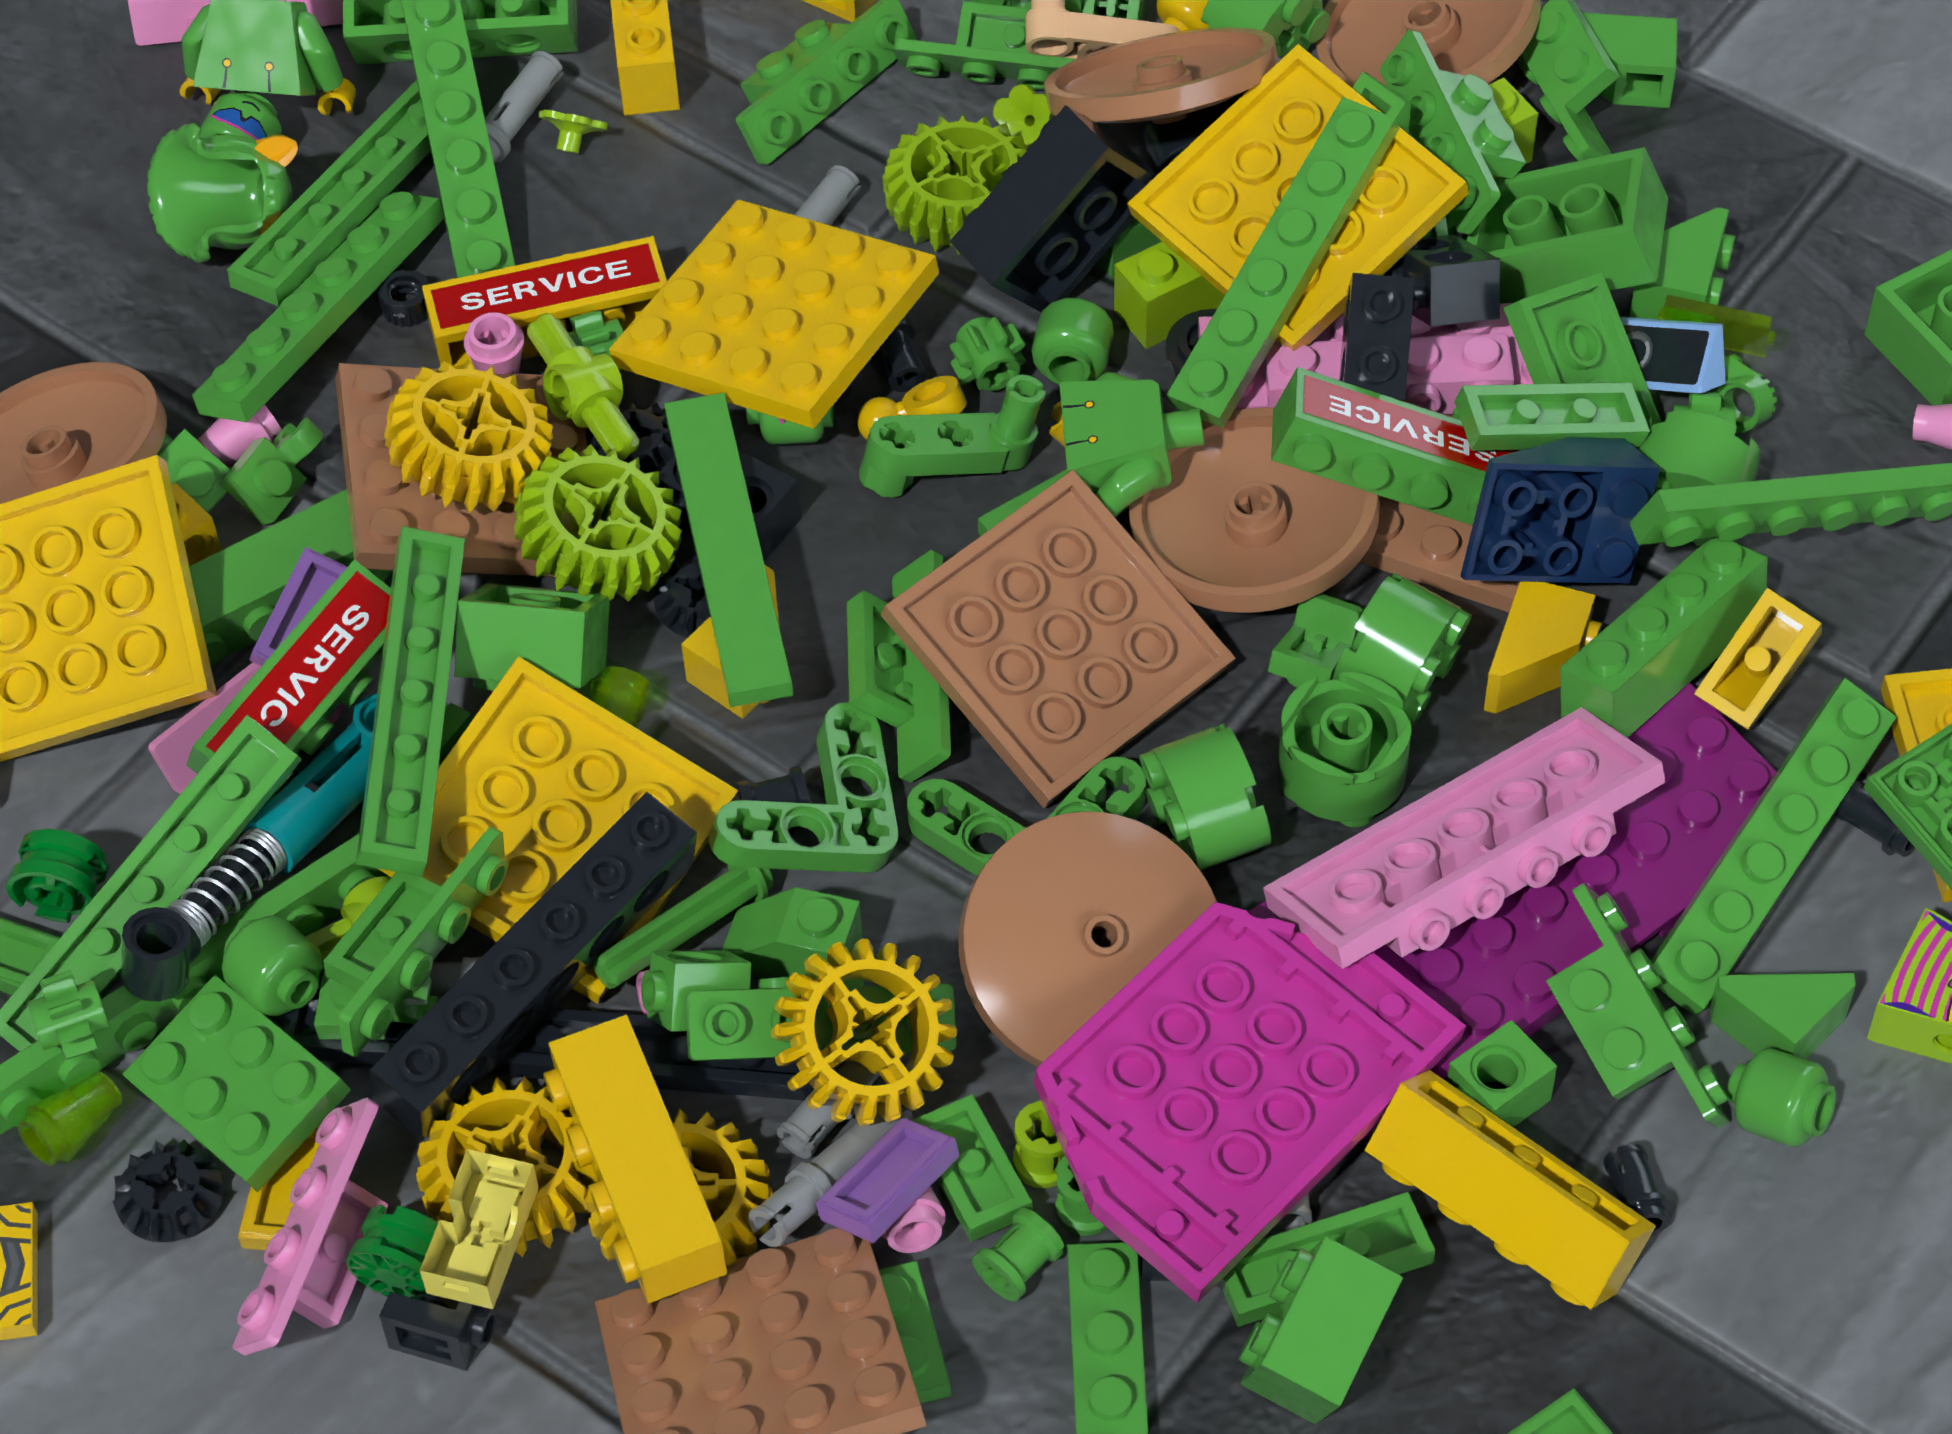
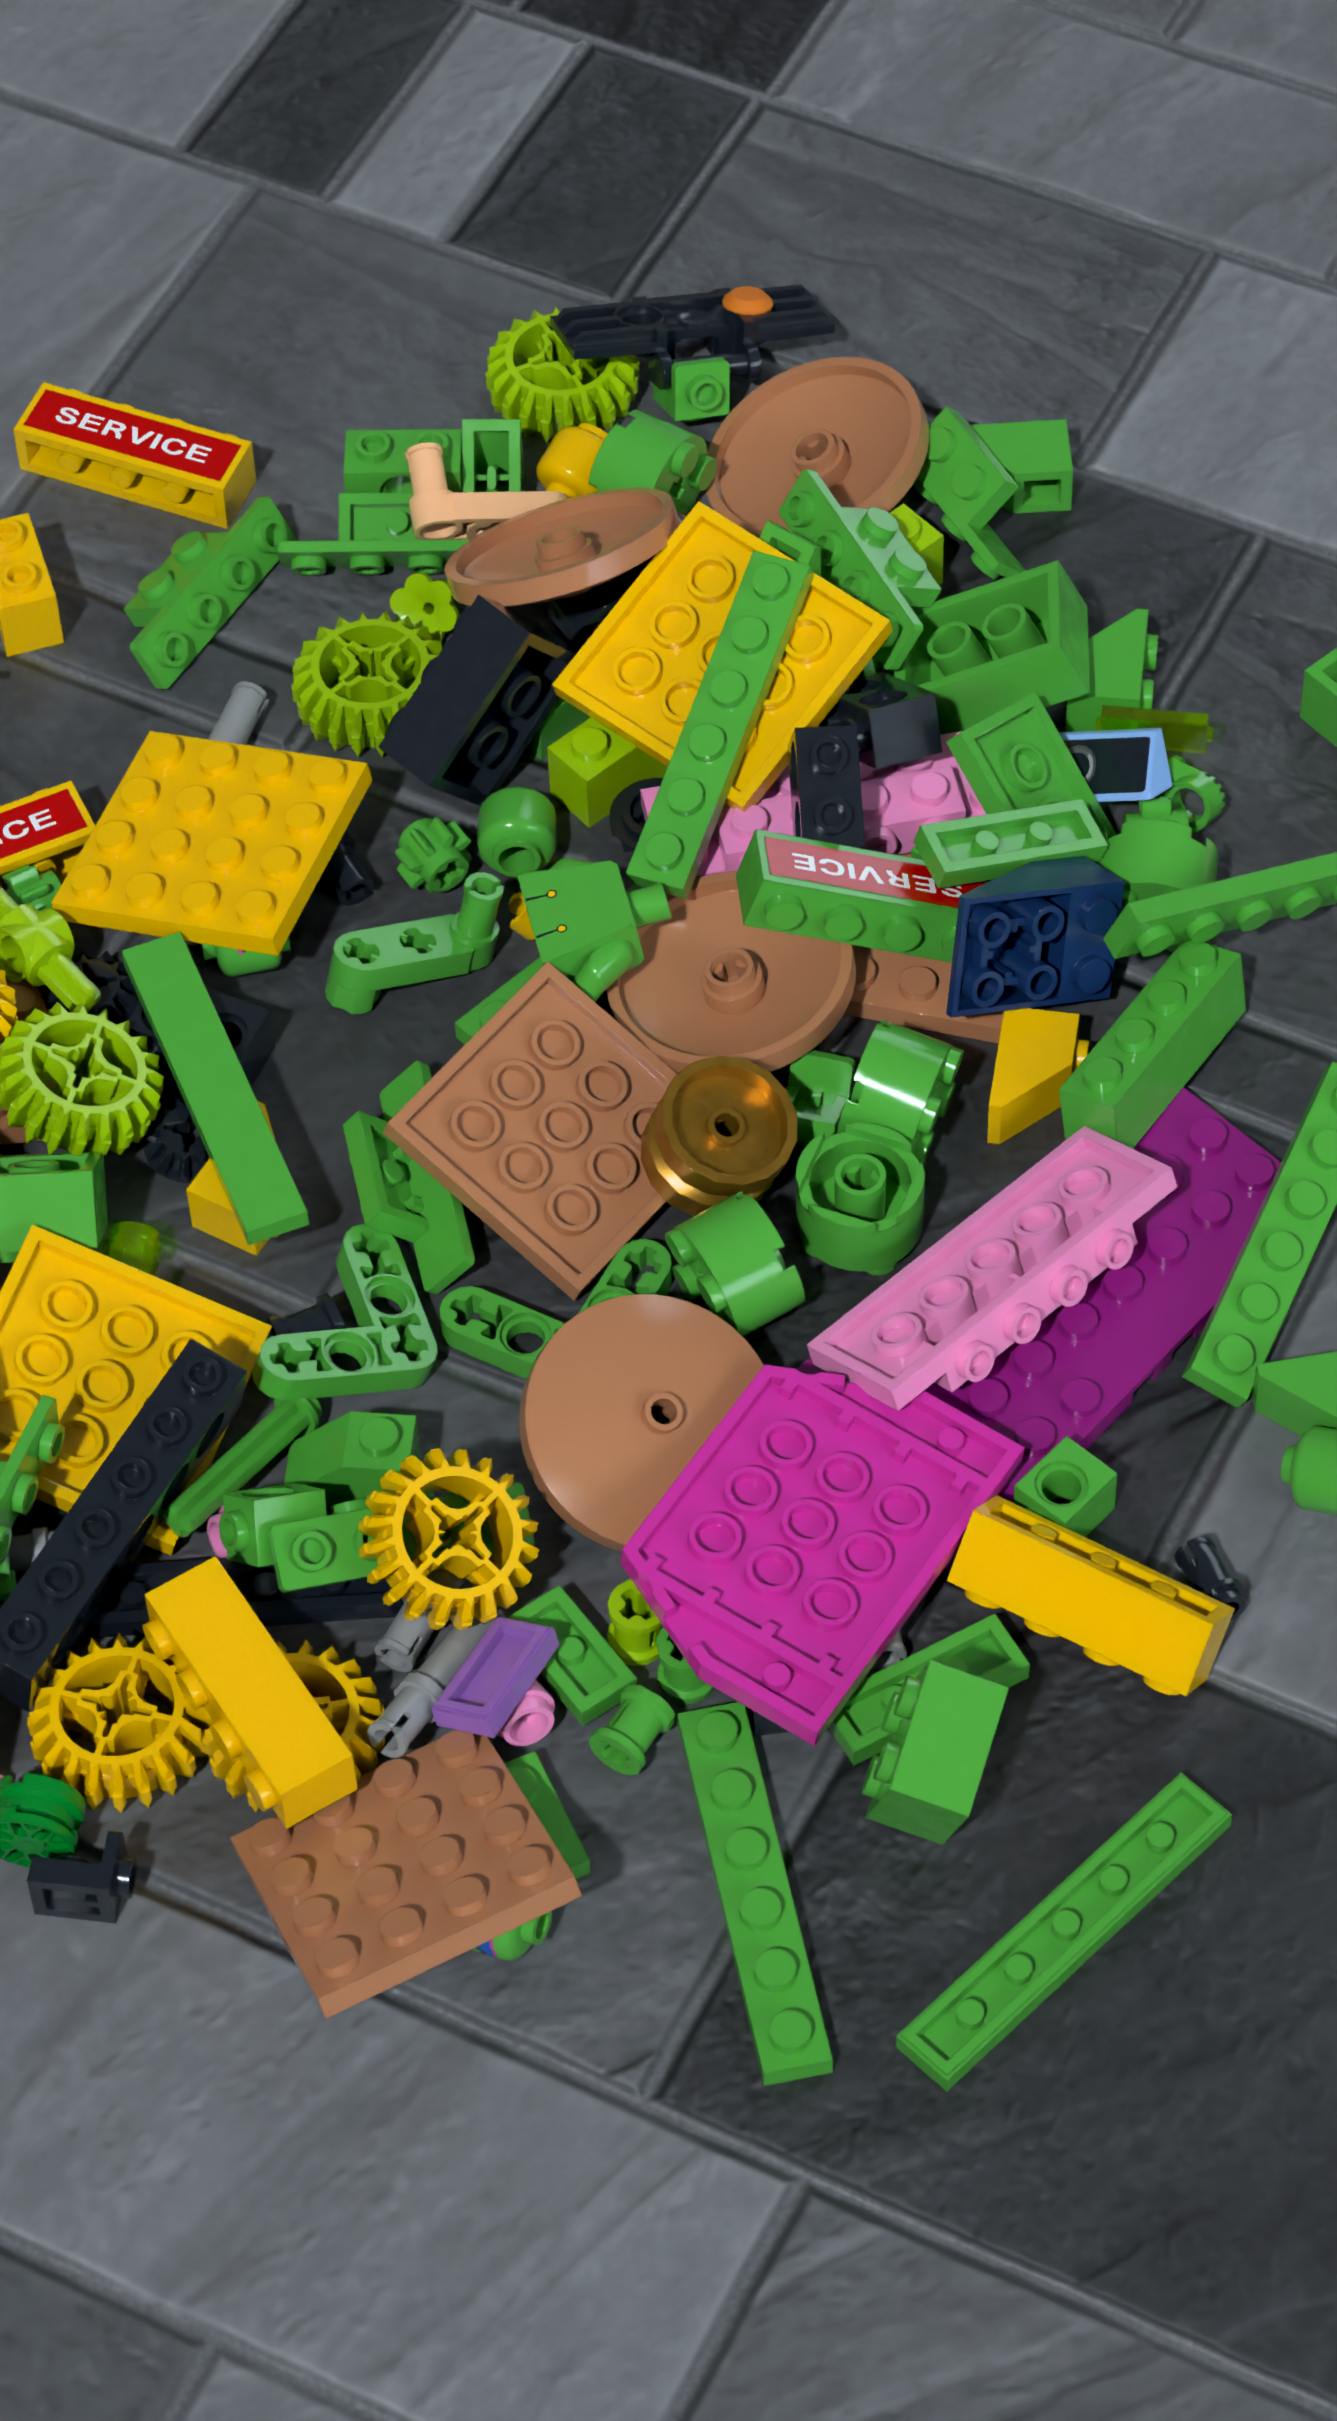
camera: 10 degrees left, 0 degrees up
(489, 1215) = (112, 1791): light yellow piece -> none
(932, 396) = (383, 907): yellow plate -> none
(1212, 663) = (718, 1134): none -> pearl gold wheel
(1622, 1019) = (1170, 1419): bright green bracket -> none
(1759, 659) = (1248, 1055): yellow slope -> none

